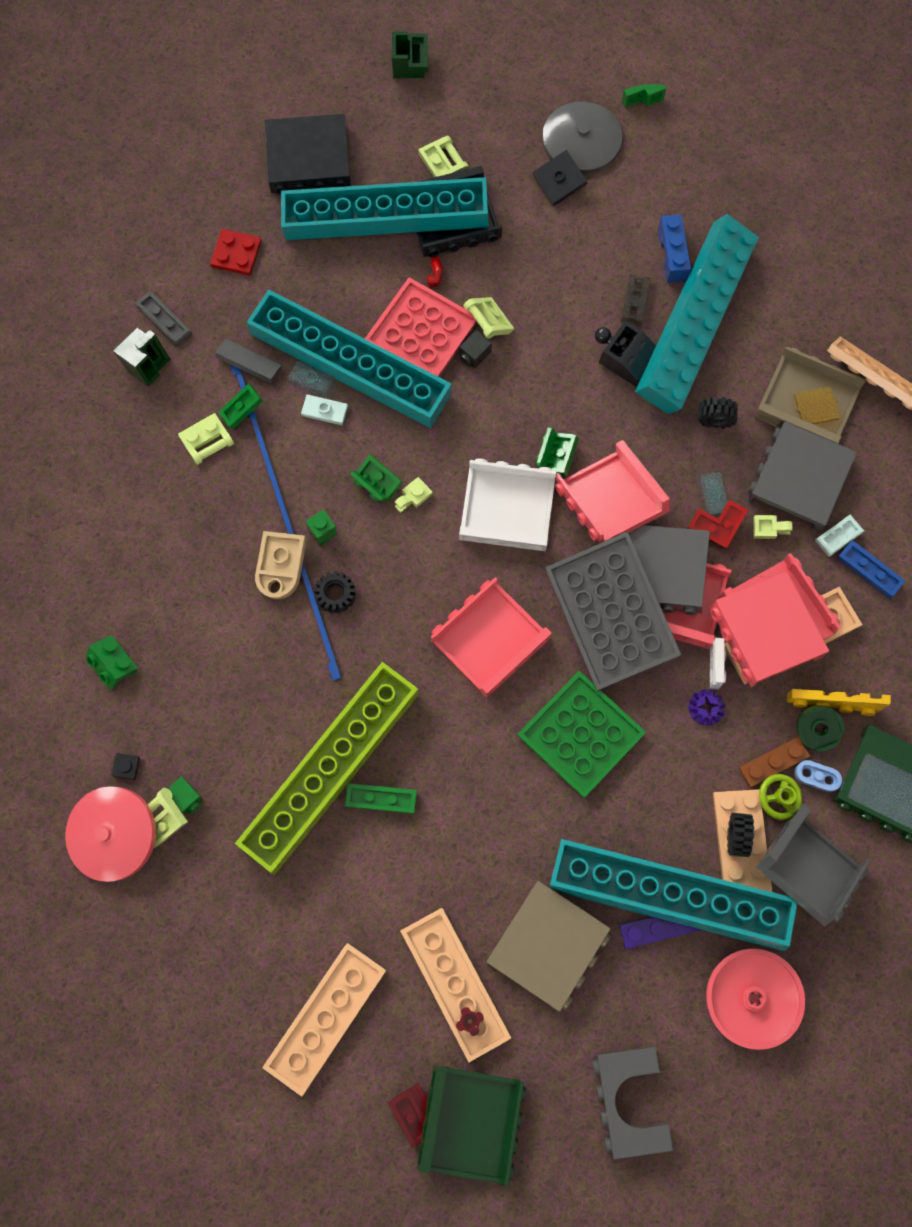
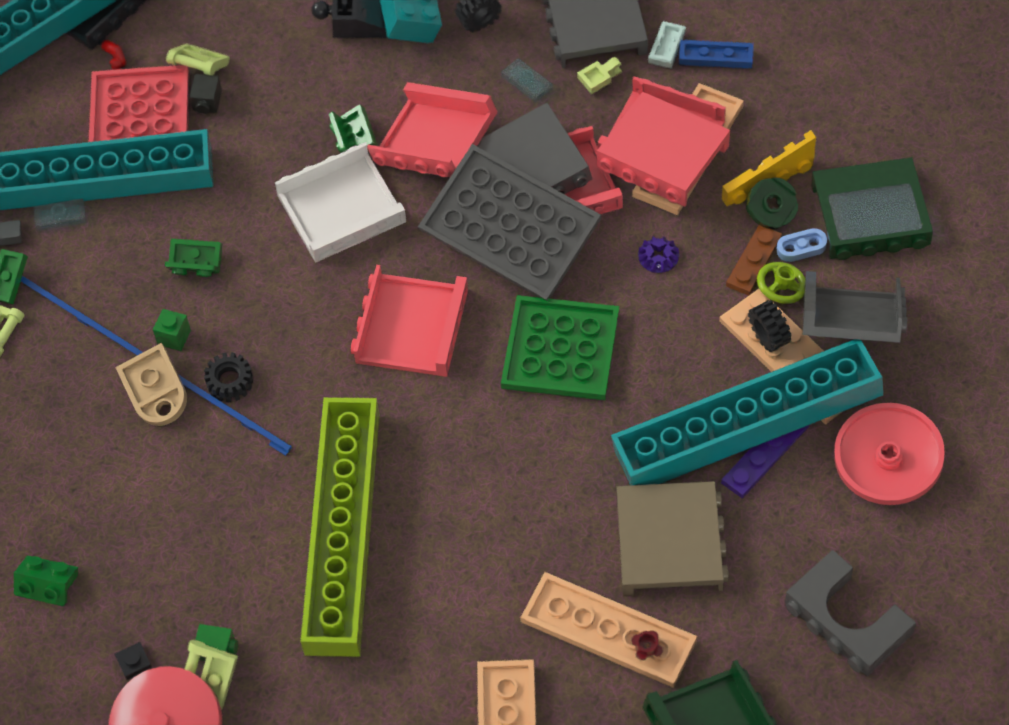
camera: 30 degrees left, 15 degrees down
(324, 410) = (94, 233): light aqua plate -> none
(380, 798) = (412, 521): green plate -> none
(414, 494) = (241, 249): yellowish green plate -> none
(717, 660) = (639, 210): white plate -> none
(721, 528) = (557, 94): red plate -> none

